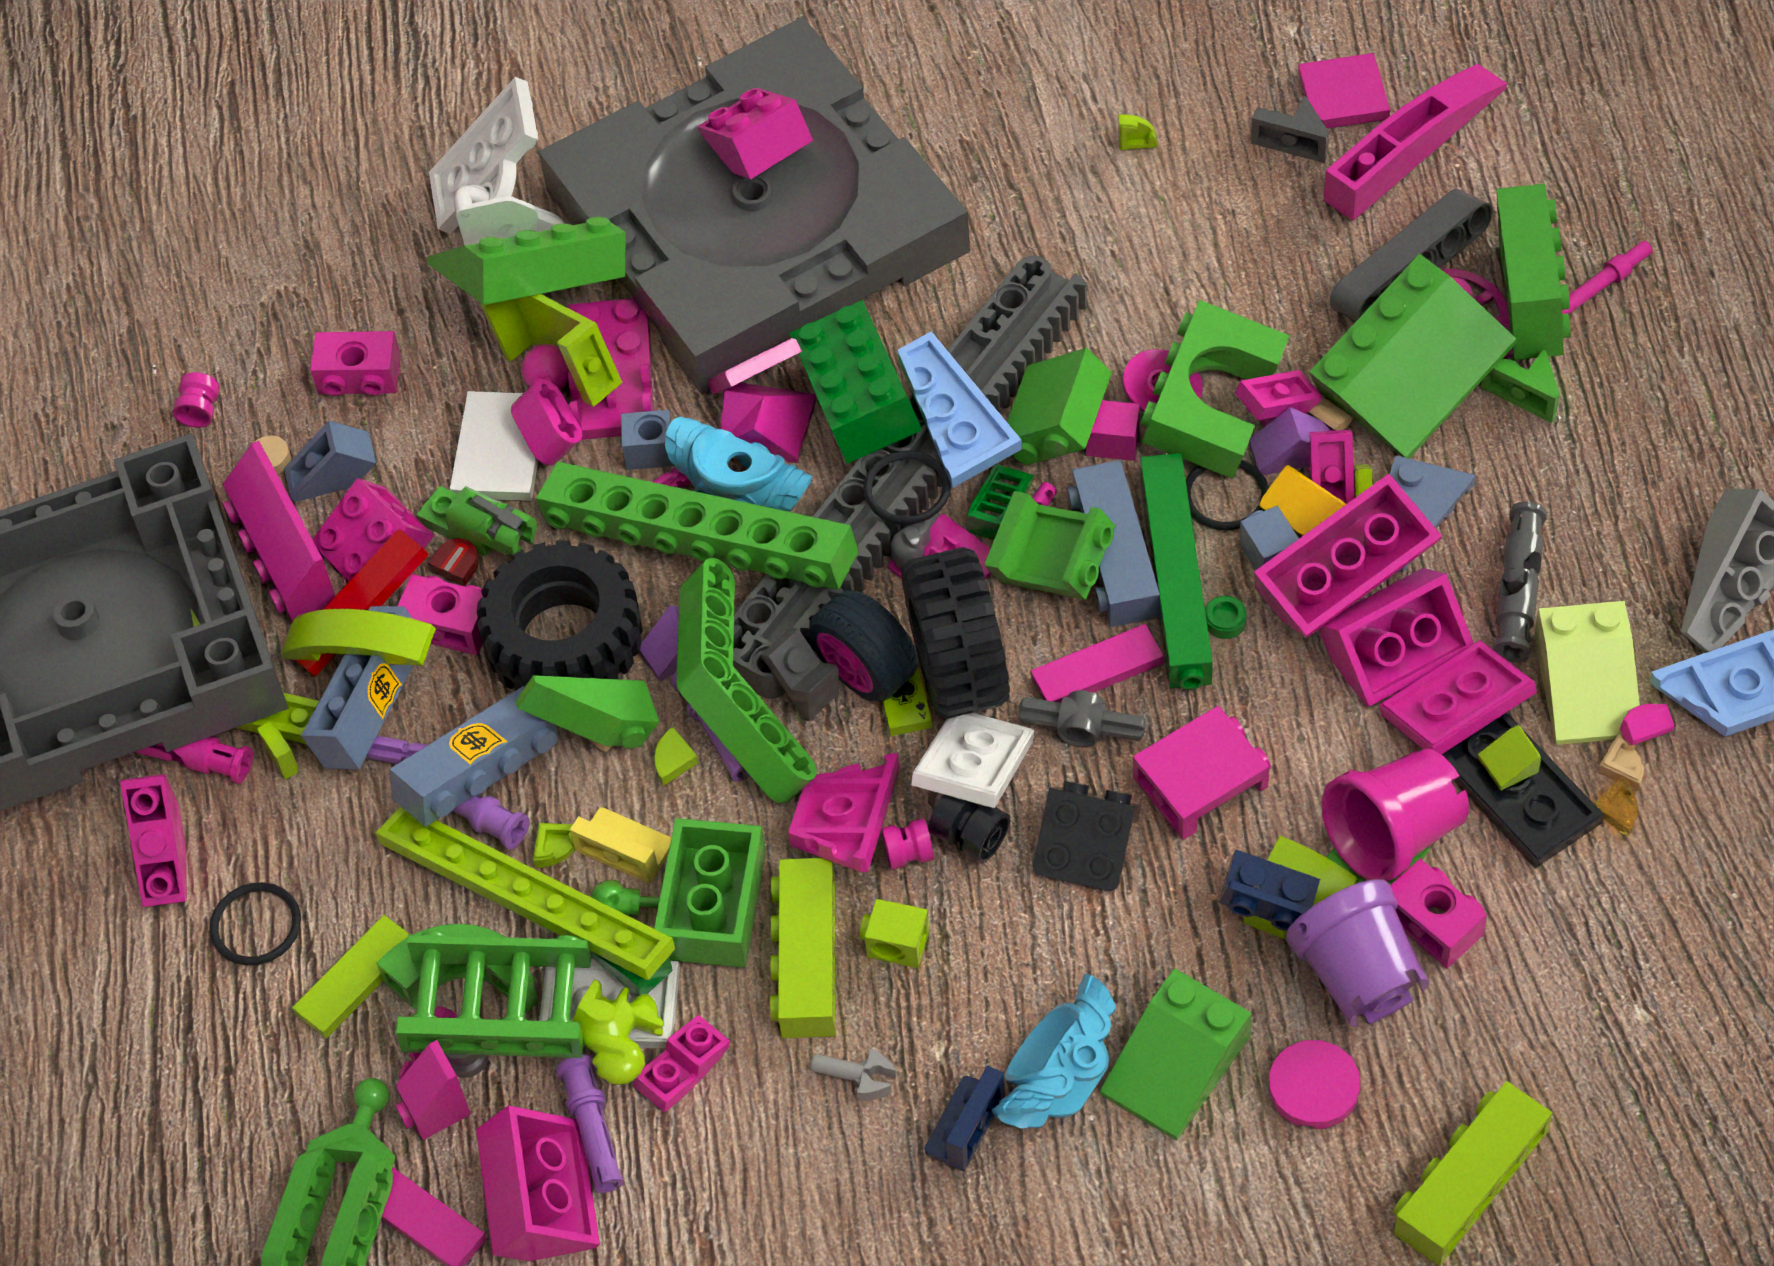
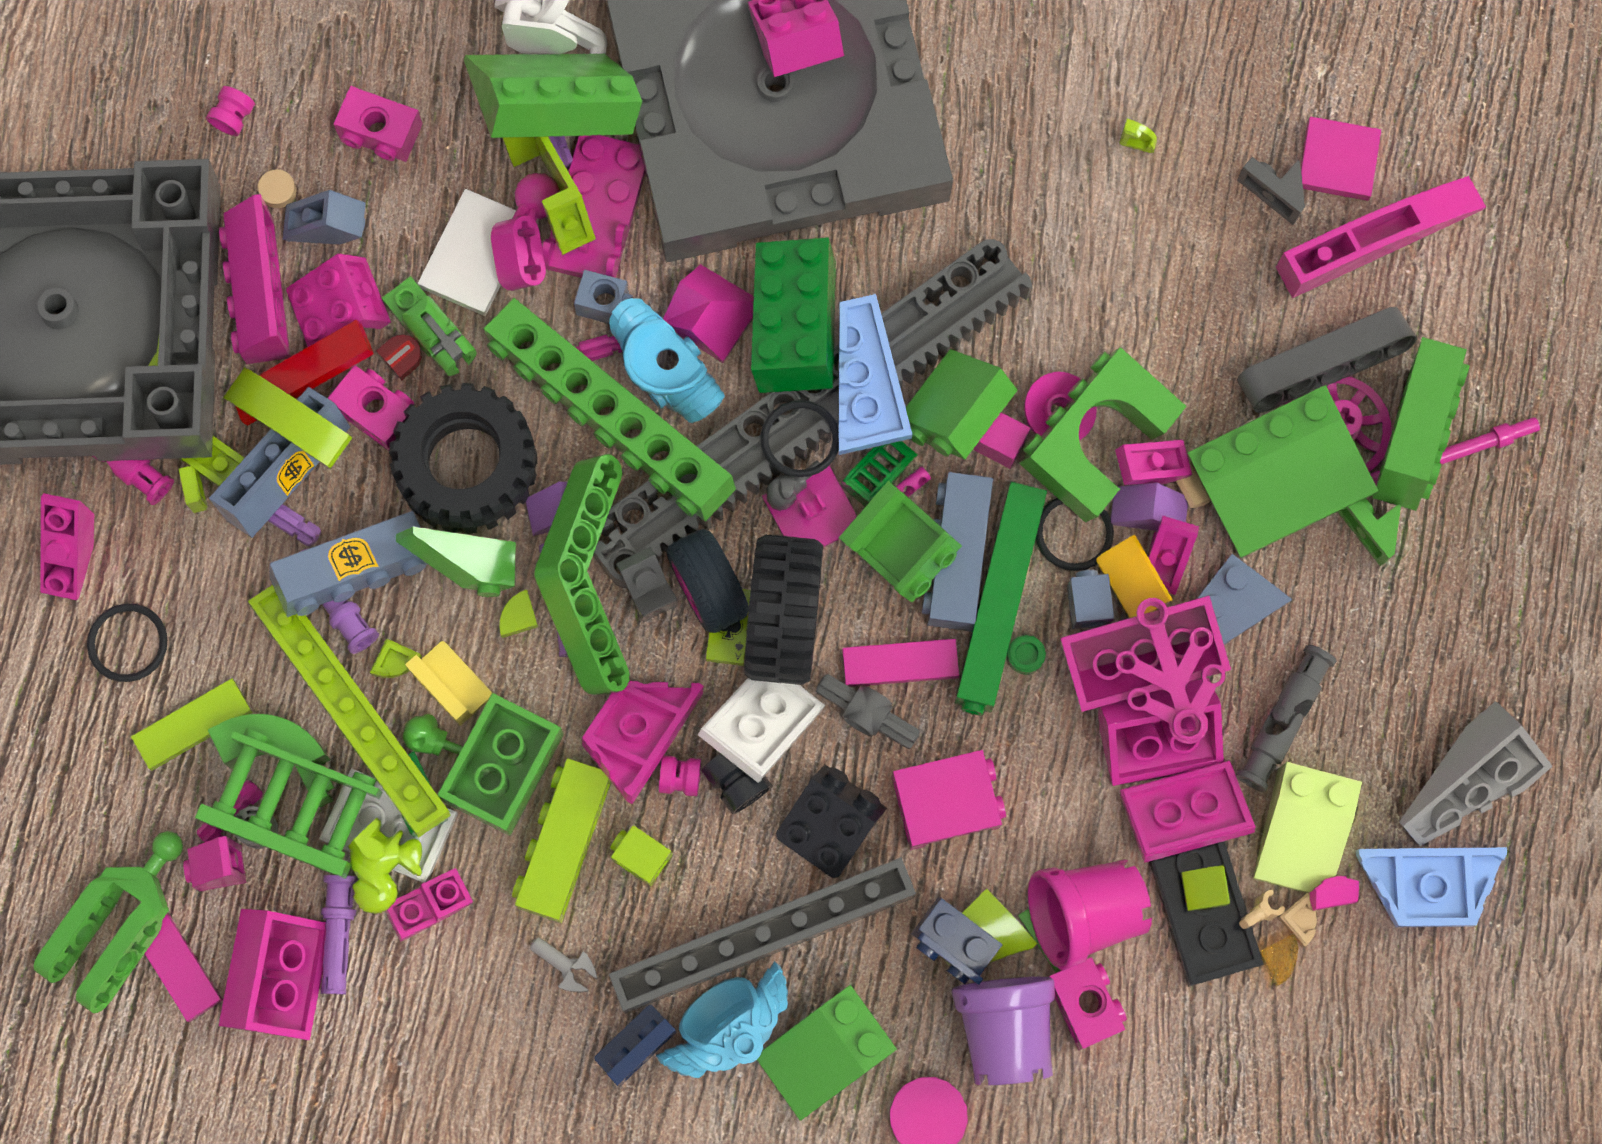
camera: 10 degrees right, 20 degrees up
(754, 366) = (714, 264): tile -> none
(1057, 961) = (762, 935): none -> dark grey brick
(1362, 478) = (1192, 573): lime tile -> none
(1383, 561) = (1173, 677): none -> dark pink plant
(1579, 765) = (1261, 911): none -> tan piece

